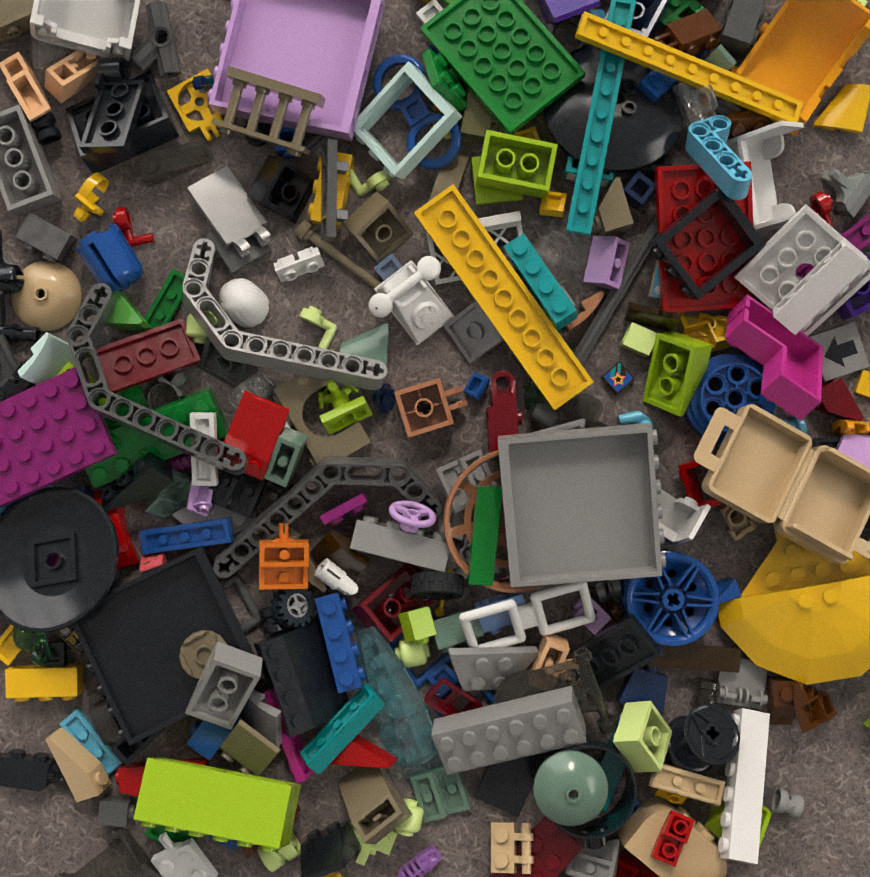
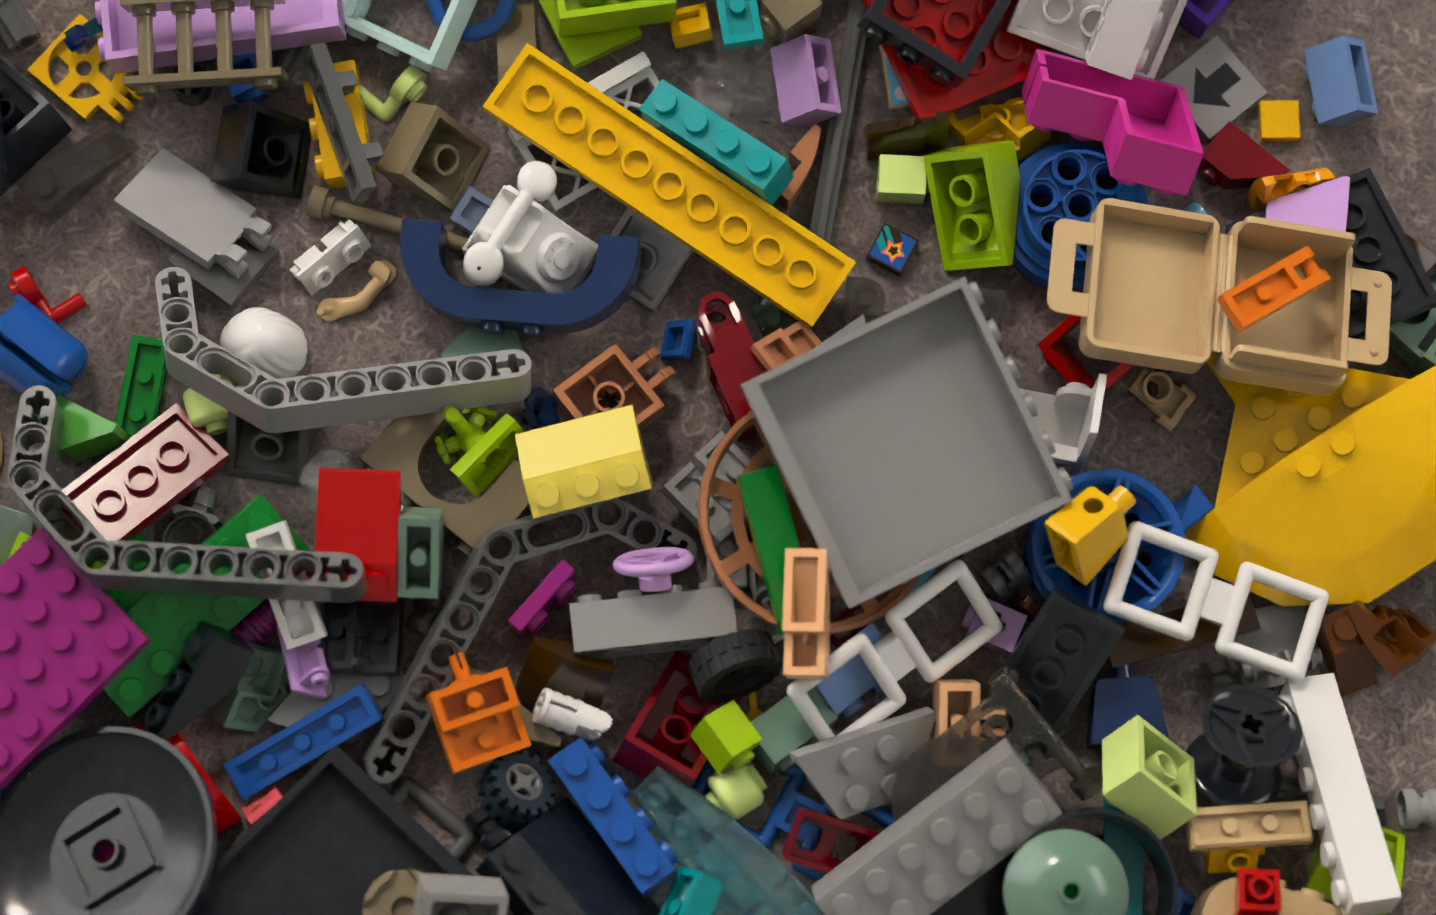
camera: 35 degrees left, 10 degrees down
(292, 295) = (336, 308): none -> tan piece
(314, 317) = (383, 328): yellowish green plate -> none
(348, 296) = (529, 312): none -> dark blue arch
(395, 441) = (583, 461): none -> light yellow slope
(485, 581) = (806, 614): none -> light nougat slope
(535, 419) = (785, 345): none -> nougat slope
(665, 592) = (1089, 531): none -> yellow torso
(720, 653) = (1216, 601): none -> white bar
(827, 495) = (1272, 289): none -> orange plate

